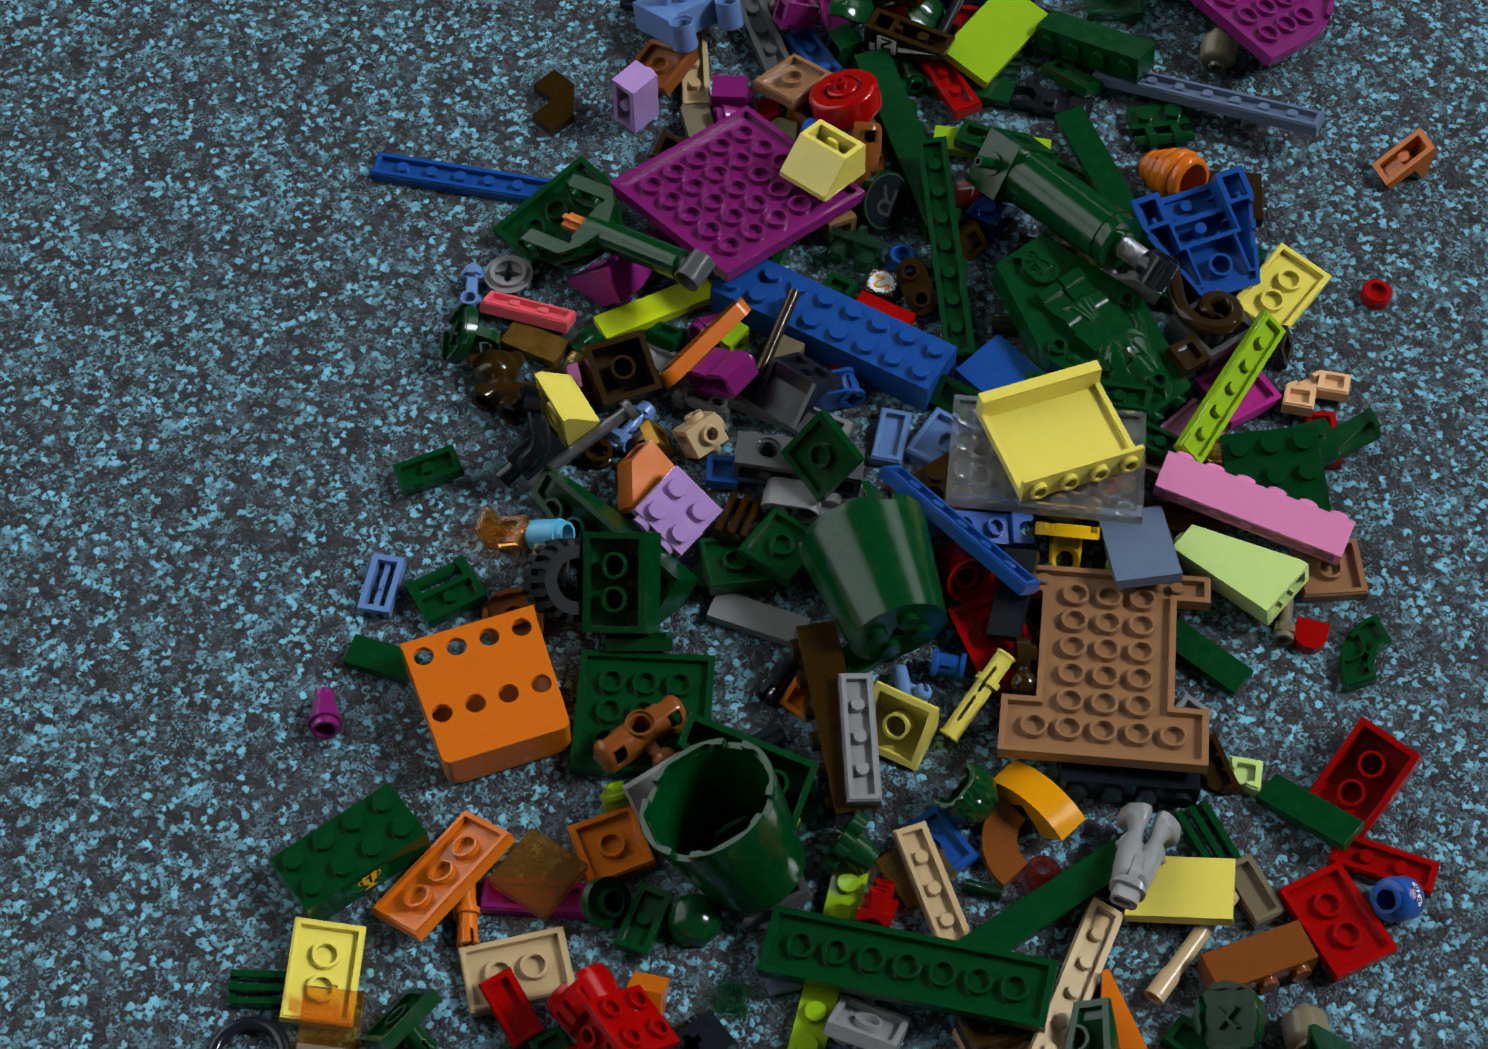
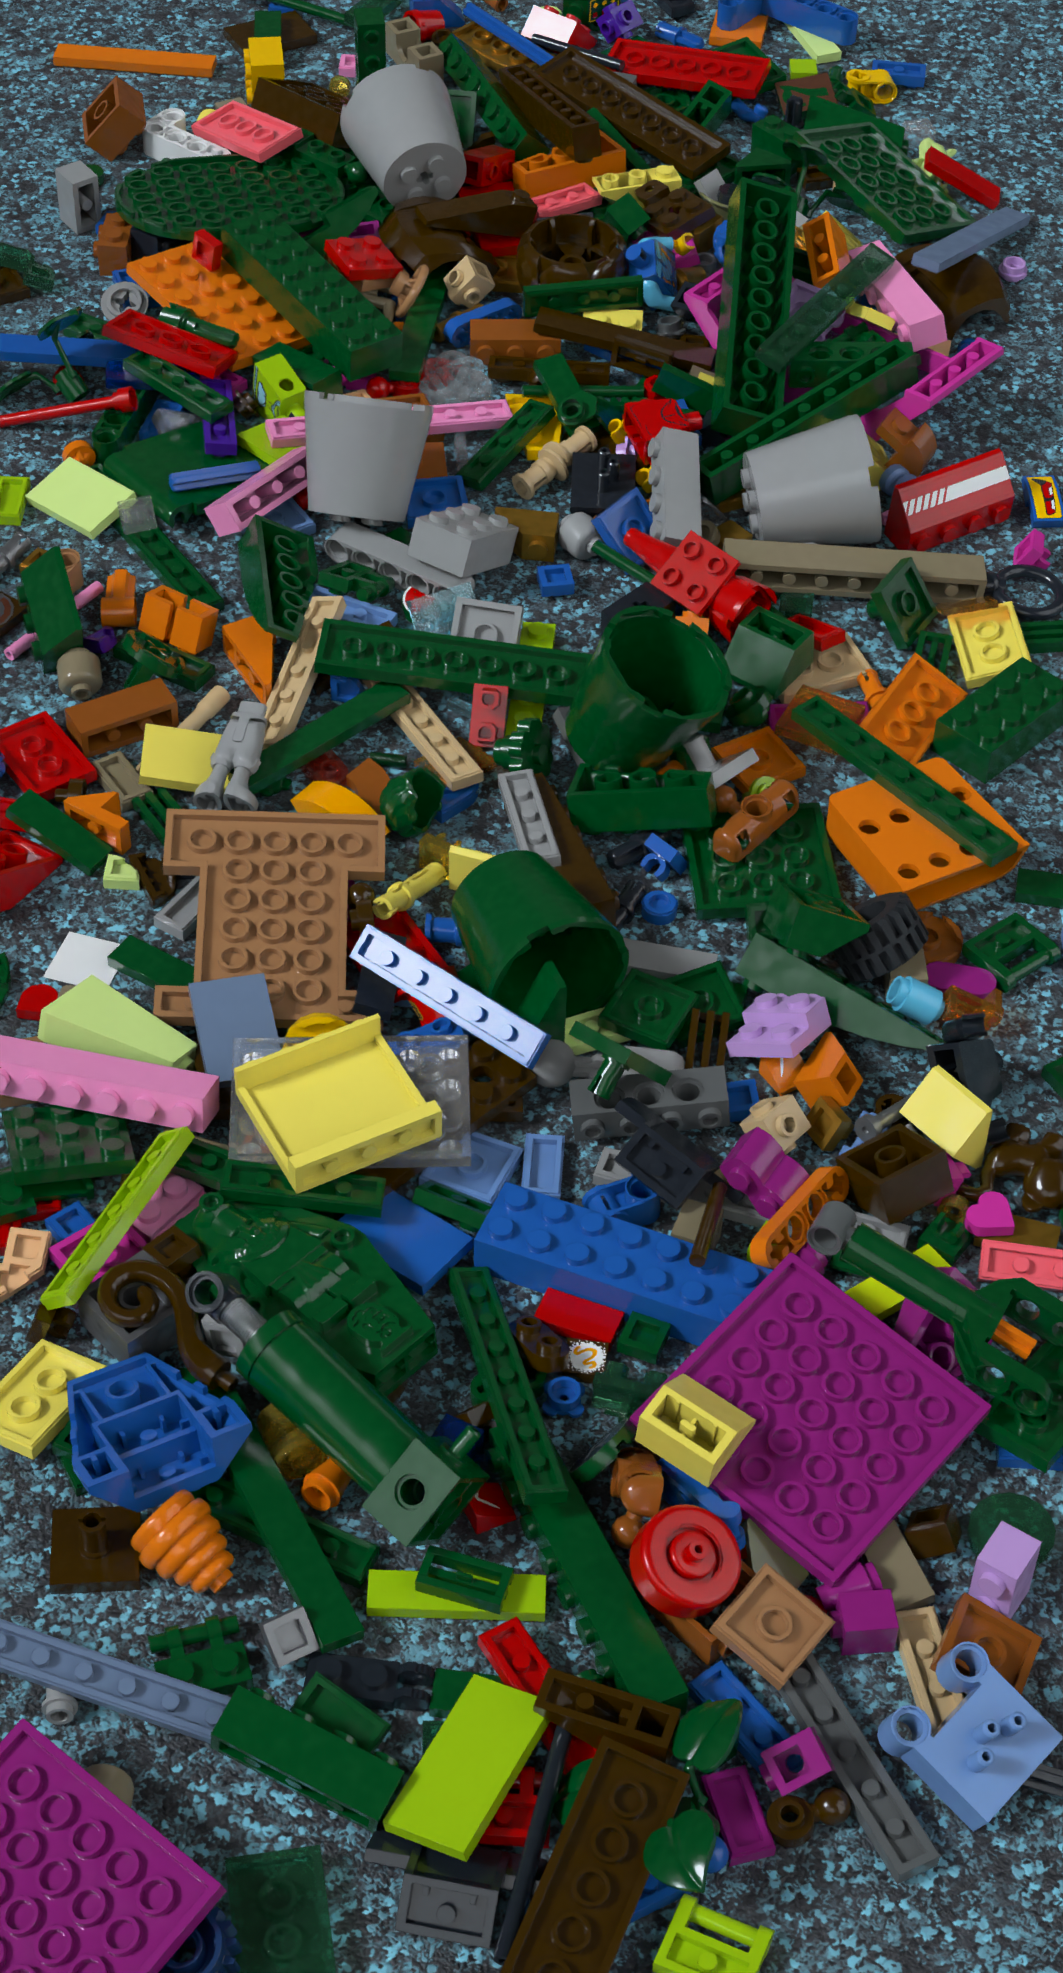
camera: 170 degrees right, 10 degrees down
(404, 943) = (936, 638): none -> dark green tile
(496, 732) = (905, 781): none -> dark green tile
(498, 569) = (971, 979): none -> magenta tile
(554, 345) = (990, 1216): none -> dark pink tile
(566, 944) = (769, 651): none -> dark green slope
(615, 145) = (1016, 1511): none -> clear green tile
(733, 717) = (662, 854): none -> blue tile
(746, 680) = (659, 907): none -> blue tile
(945, 747) = (435, 849): none -> clear yellow tile
(1104, 120) = (289, 1636): none -> flat silver tile
(1262, 421) = (68, 1221): none -> blue tile
(1273, 685) = (80, 958): none -> white sticker
(1277, 829) = (102, 817): none -> orange slope
(1298, 861) = (75, 788): none -> dark brown tile

